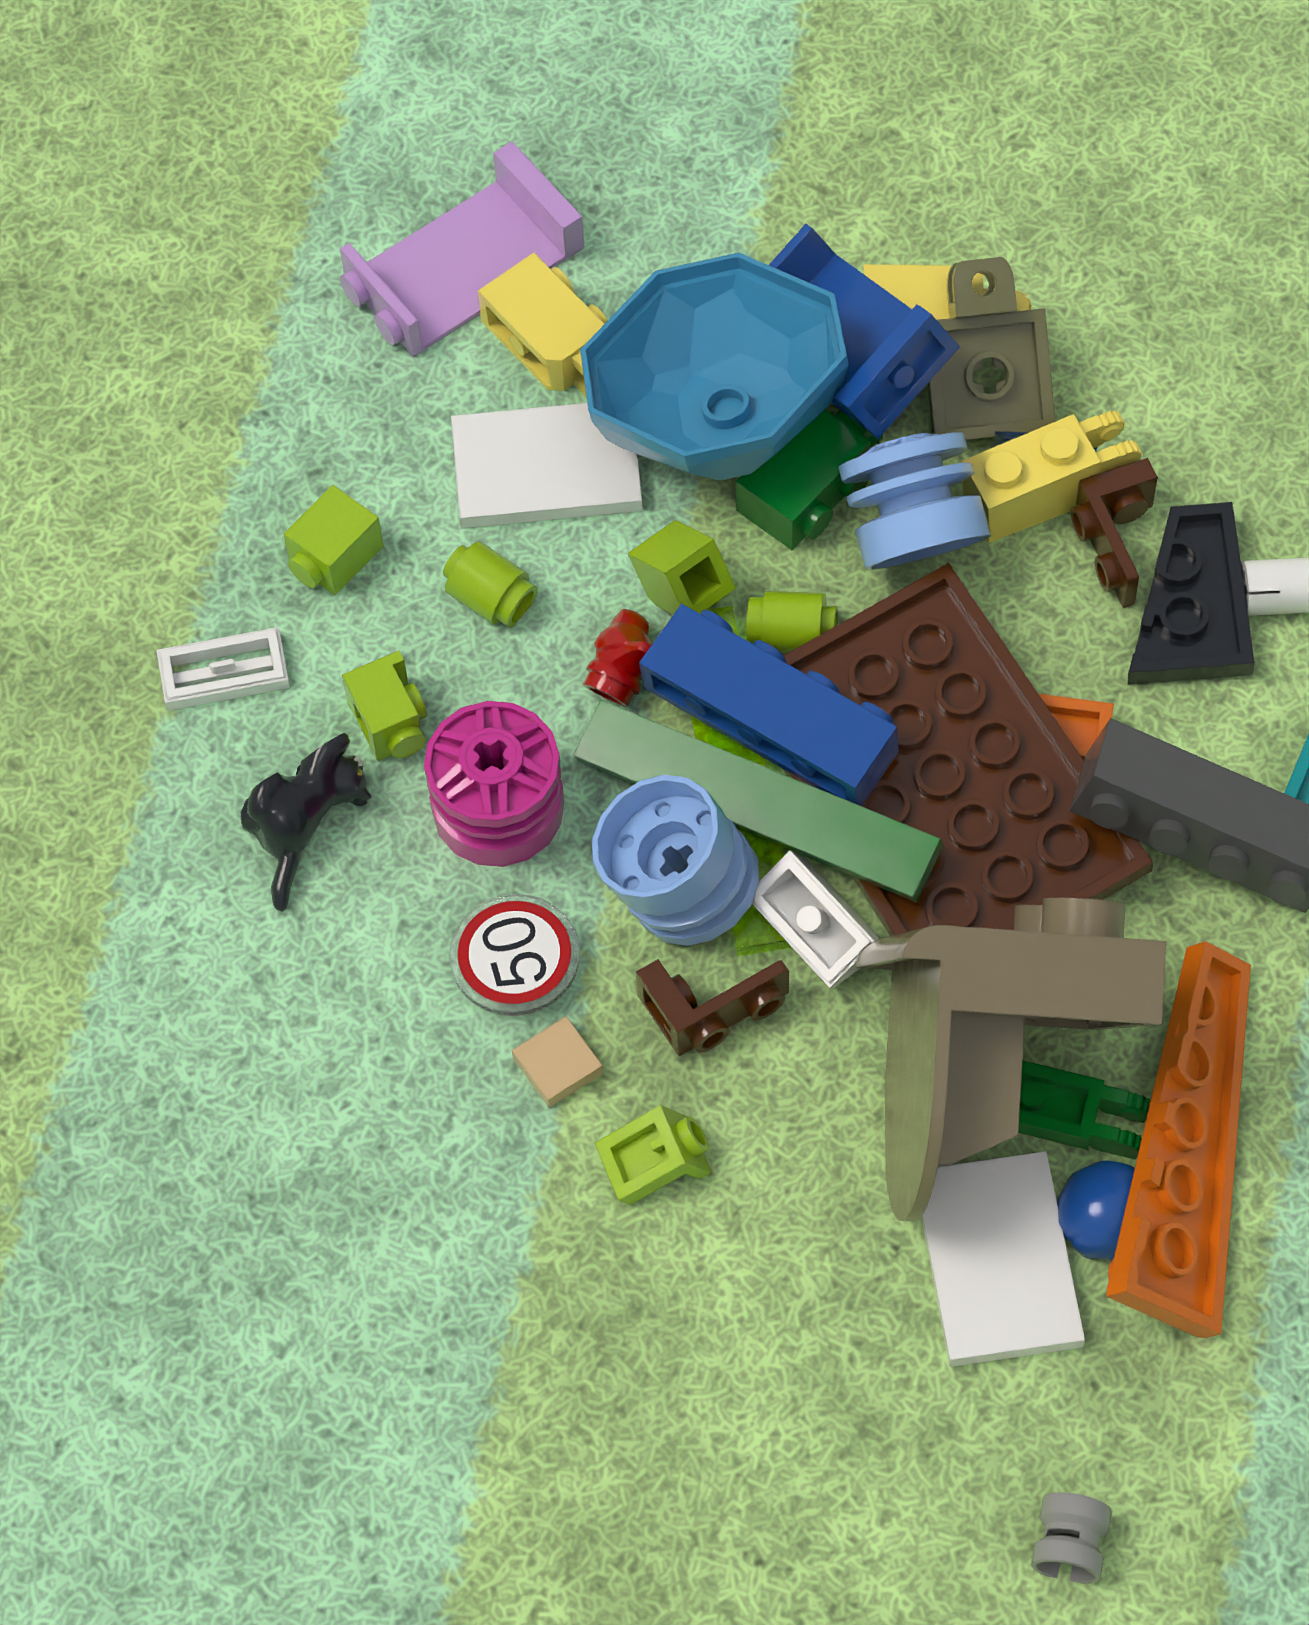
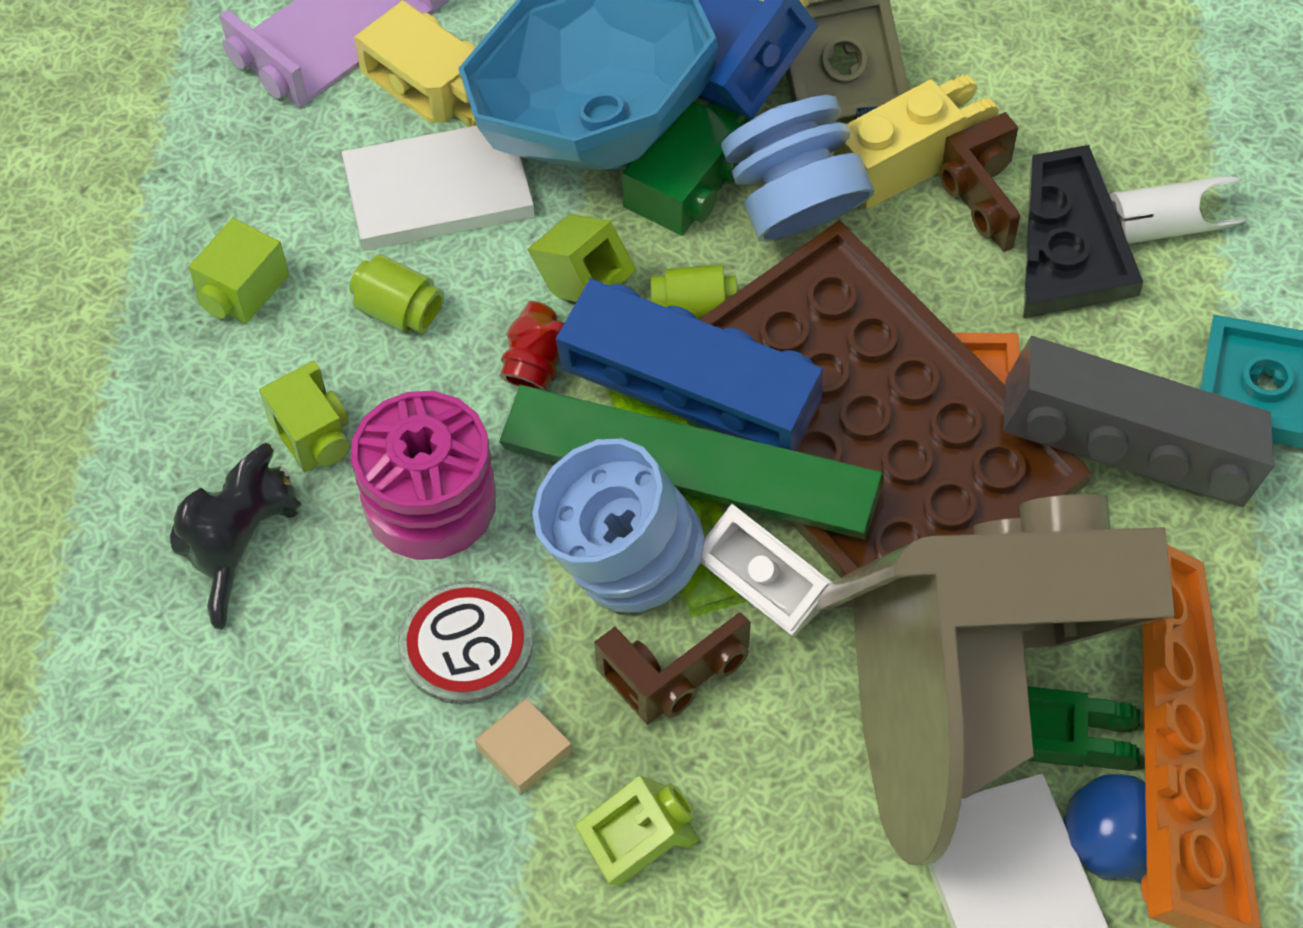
camera: 10 degrees left, 5 degrees down
(227, 688) = (141, 411): white tile -> none

